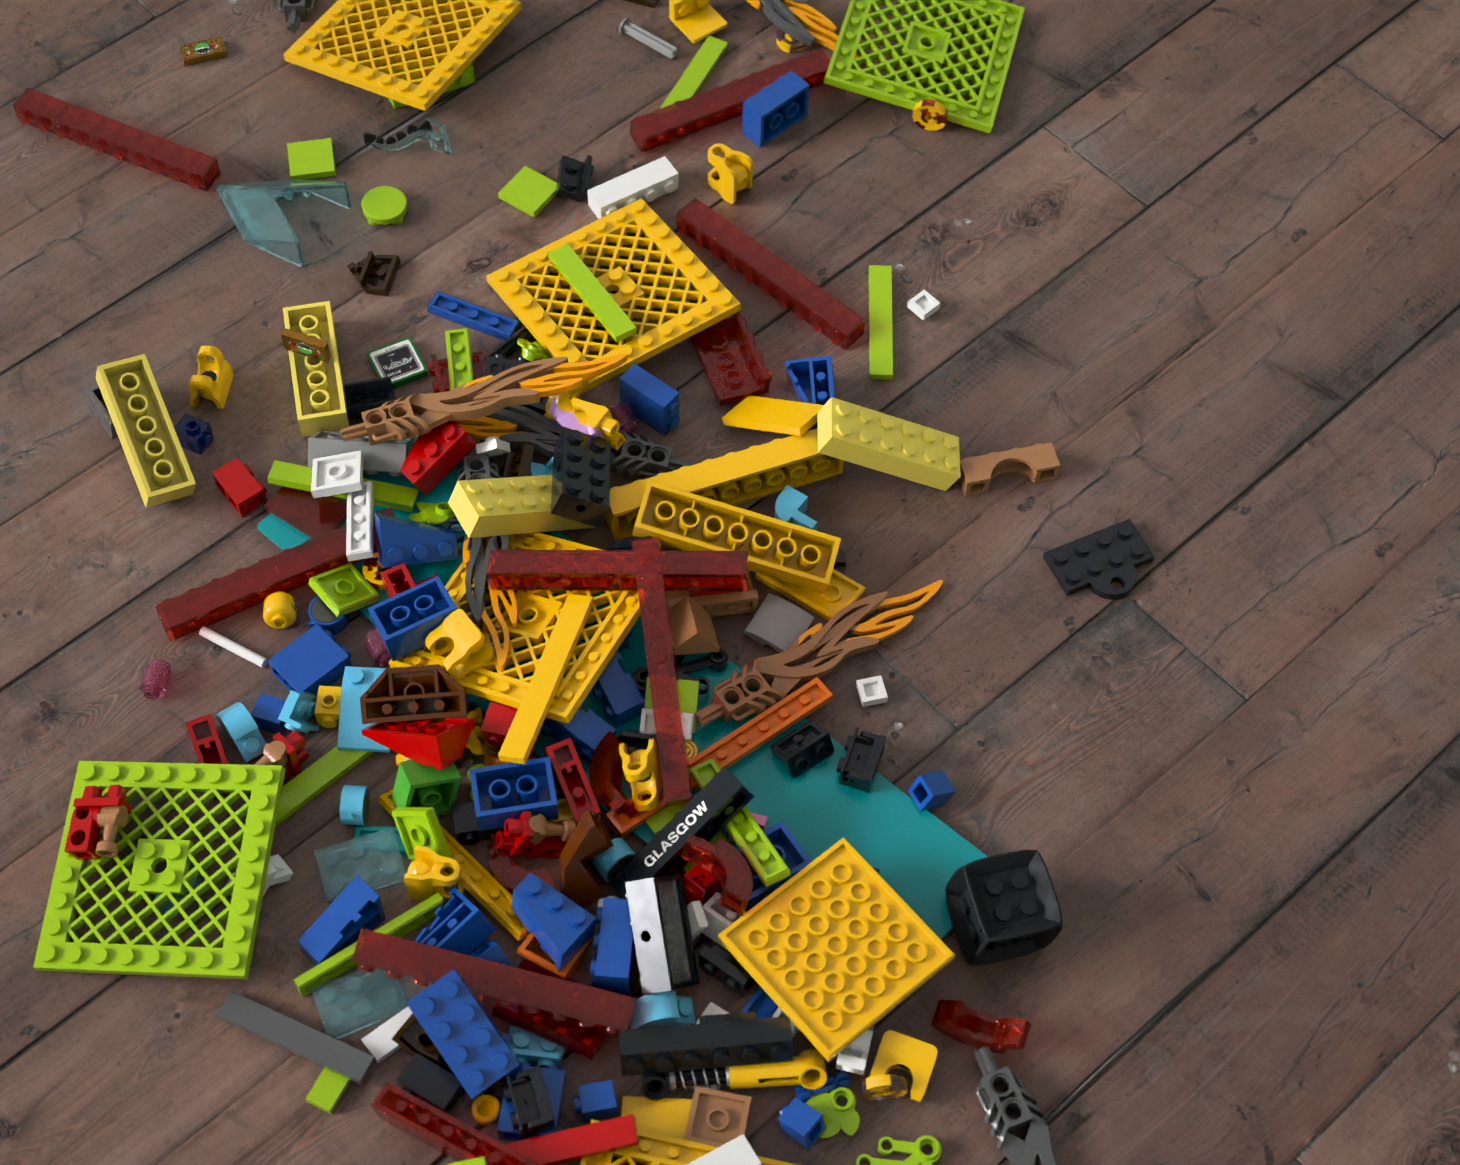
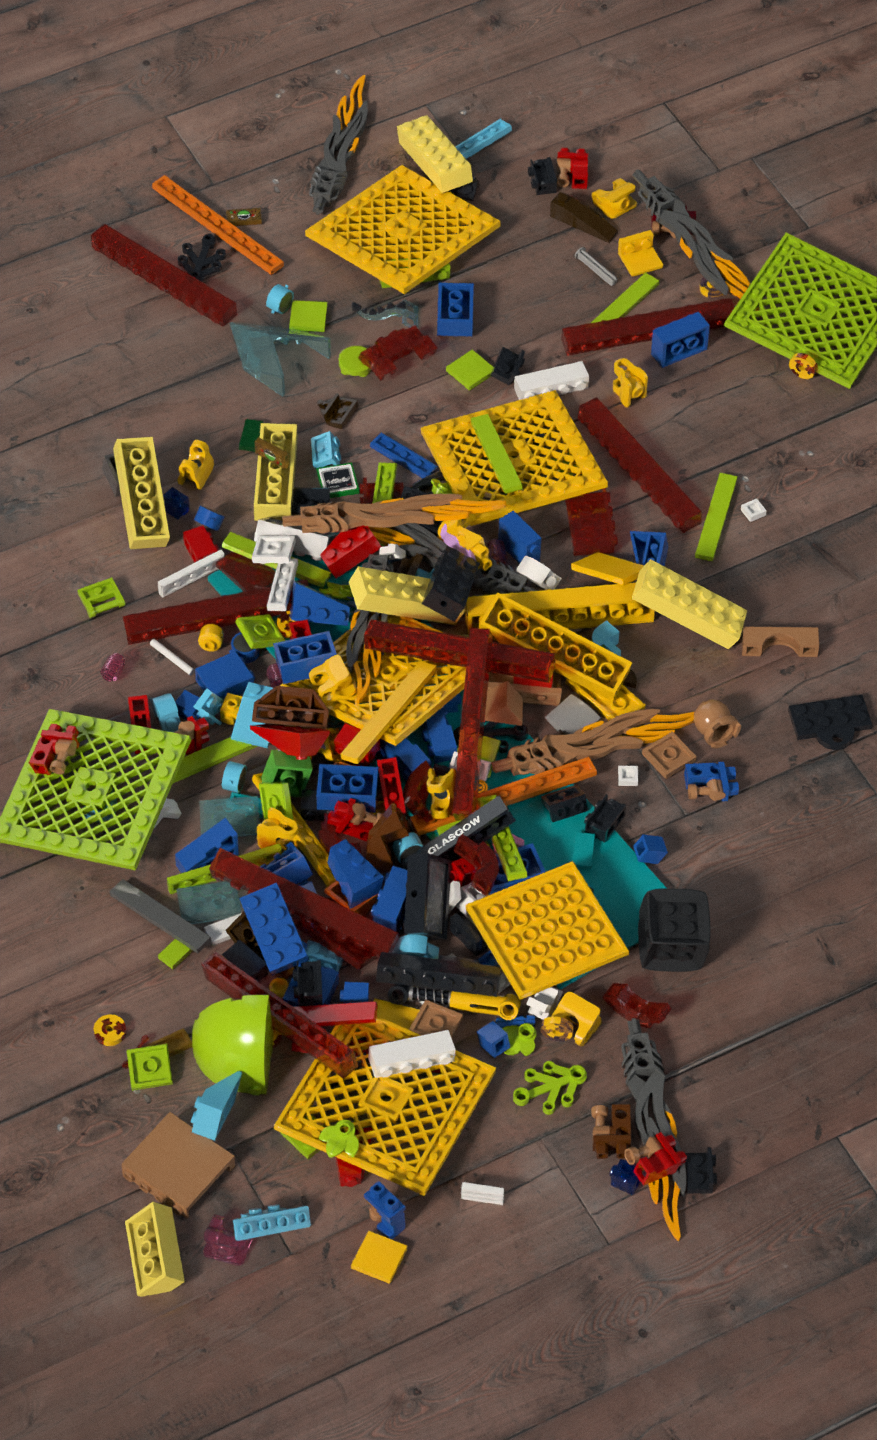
camera: 15 degrees right, 5 degrees down
(116, 577) = (100, 592): none -> lime plate
(165, 90) = (208, 242): none -> black plant
(173, 66) = (218, 225): none -> orange plate
(232, 527) = (189, 574): none -> white tile
(242, 446) = (209, 518): none -> blue piece
(270, 144) = (279, 299): none -> medium azure piece
(271, 325) = (249, 435): none -> dark green tile
(372, 327) = (325, 450): none -> medium azure bracket
(430, 178) = (394, 347): none -> clear red bracket
(492, 119) = (455, 309): none -> blue brick
(684, 439) = (538, 573): none -> white brick
(845, 811) = (583, 850): none -> teal tile
(915, 651) = (669, 755): none -> medium nougat plate
(962, 594) = (716, 723): none -> medium nougat tile
(983, 669) = (712, 775): none -> blue hips

